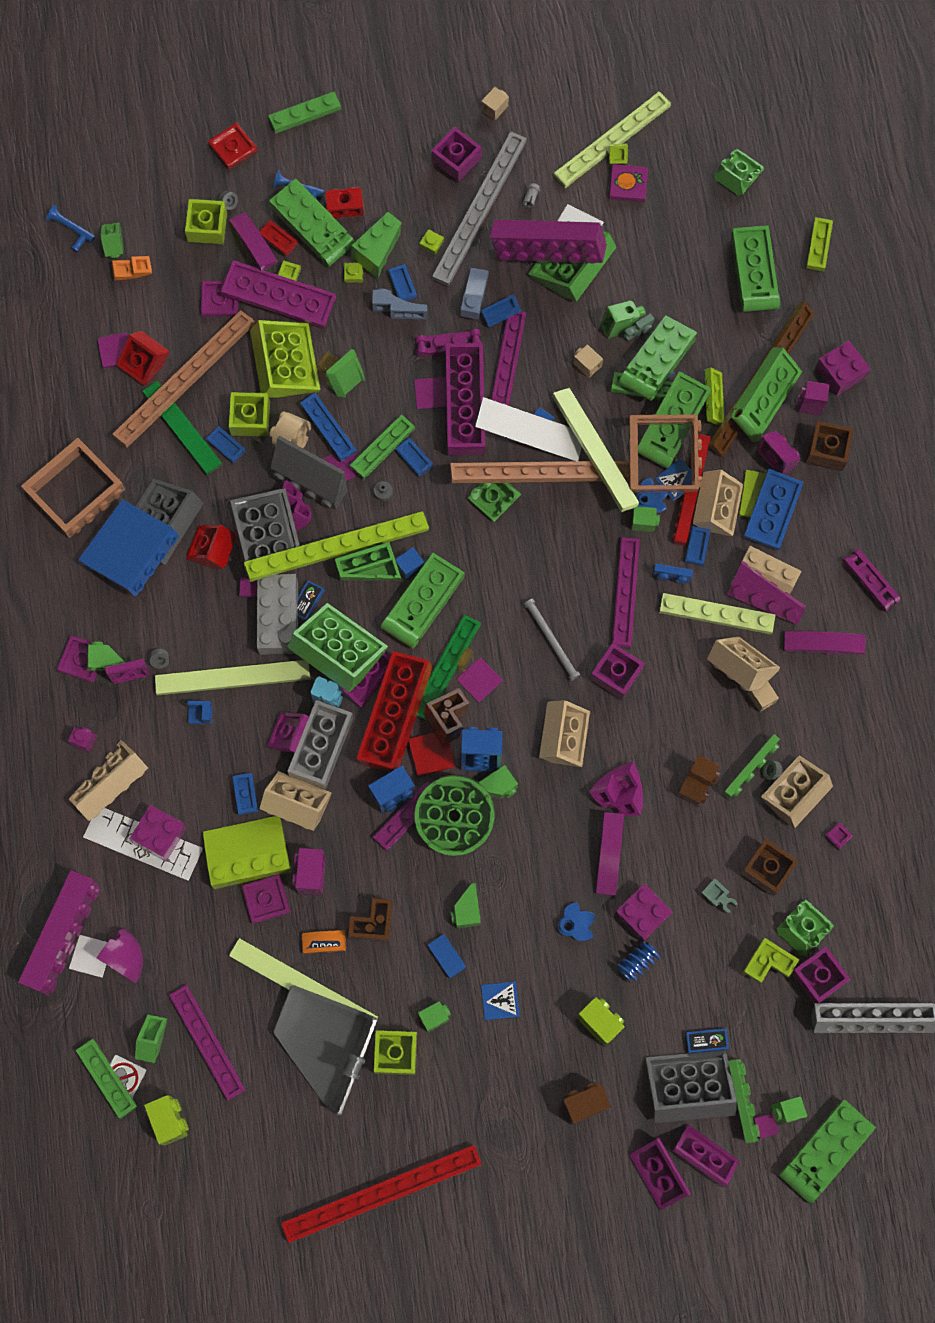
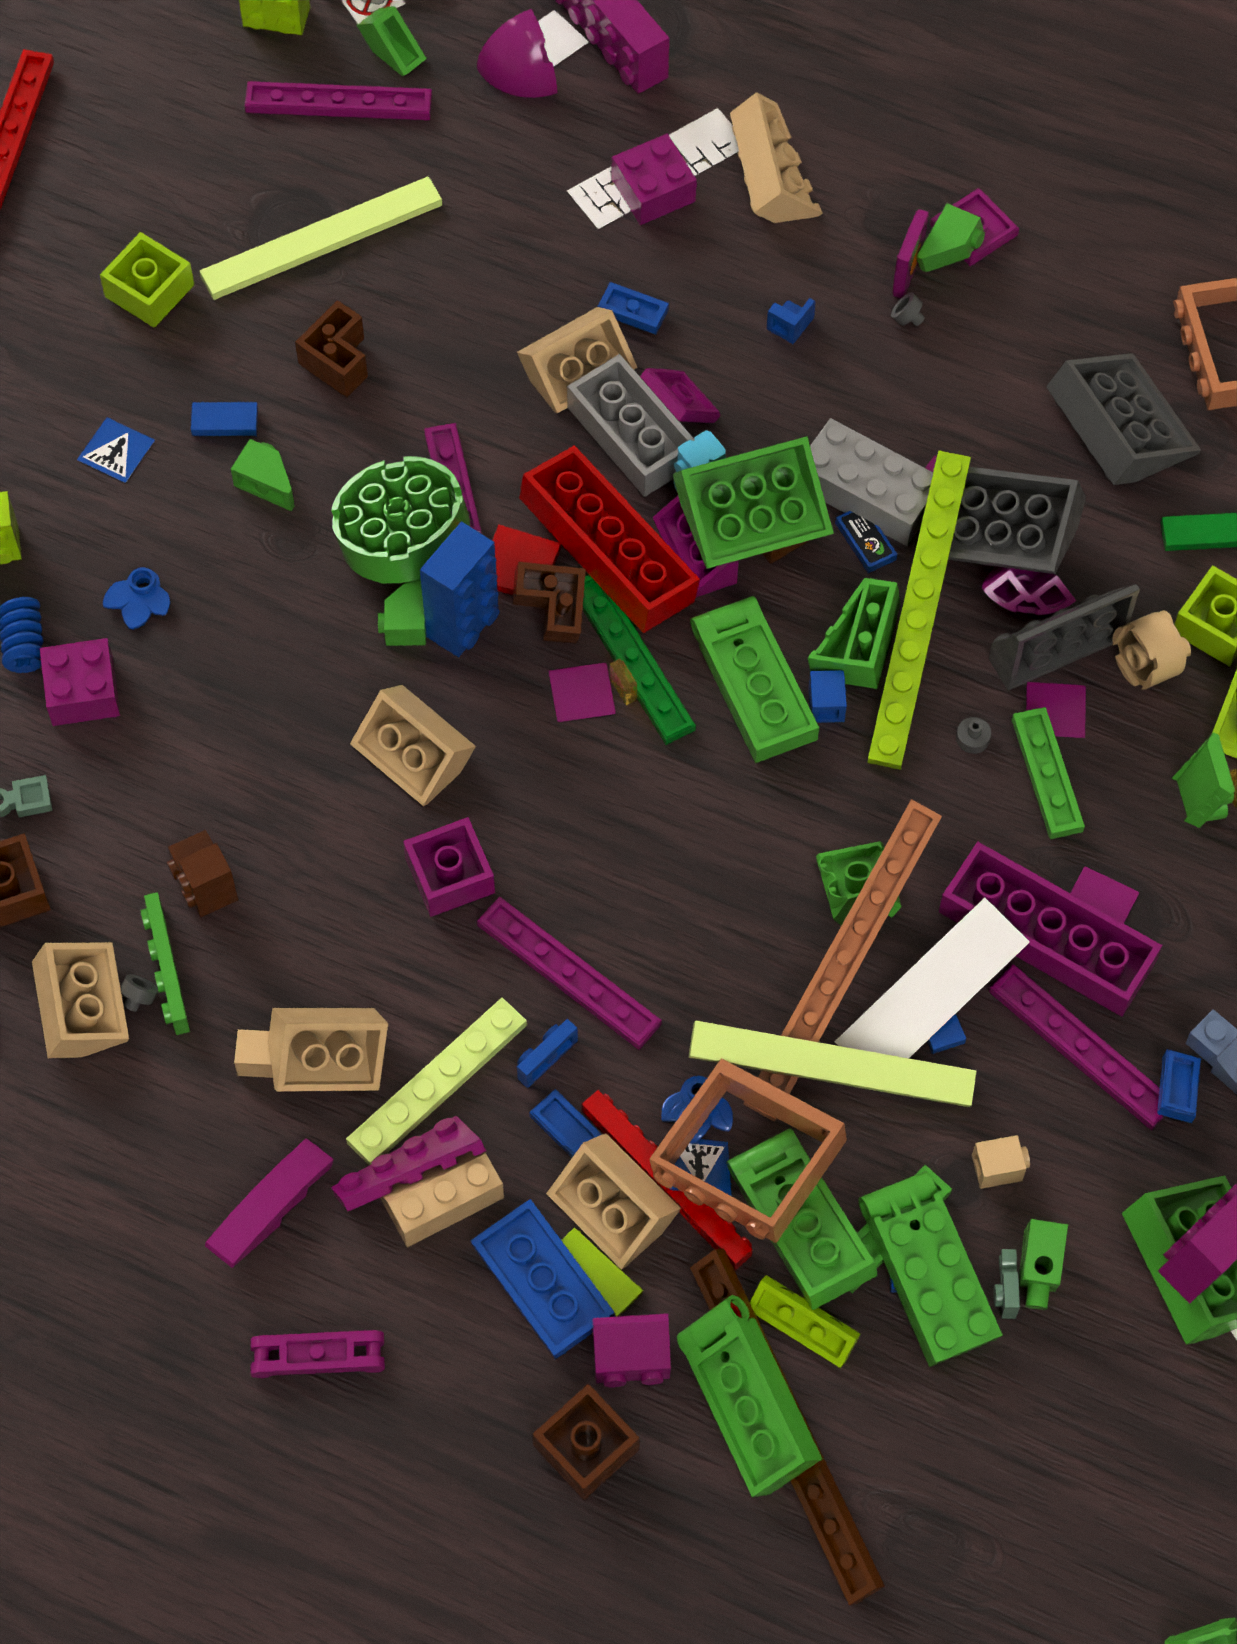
camera: 125 degrees right, 10 degrees down
(82, 739) = (852, 164): magenta brick -> none
(129, 547) = (1099, 344): blue panel -> none
(211, 546) = (1035, 452): red slope -> none
(226, 444) = (1188, 570): blue tile -> none
(232, 677) = (826, 365): yellowish green tile -> none
(246, 852) = (549, 264): lime slope -> none
(266, 899) = (471, 259): magenta tile -> none
(310, 871) = (460, 312): magenta brick -> none
(323, 941) = (360, 285): orange slope -> none
(324, 1043) = (233, 218): dark grey panel -> none
(328, 427) = (1131, 717): blue plate -> none
(392, 790) = (496, 469): blue brick -> none
(414, 457) = (1002, 810): blue tile -> none
(434, 1016) = (157, 353): bright green brick -> none
(439, 342) = (1171, 975): magenta plate -> none
(552, 640) = (569, 819): light grey bar -> none
(609, 854) = (196, 692): magenta slope -> none
(620, 790) = (273, 765): magenta brick -> none
(645, 519) = (665, 1070): bright green brick -> none
(755, 268) = (996, 1552): bright green hinge -> none
(813, 398) = (687, 1470): magenta brick -> none
(842, 368) = (712, 1571): magenta brick -> none

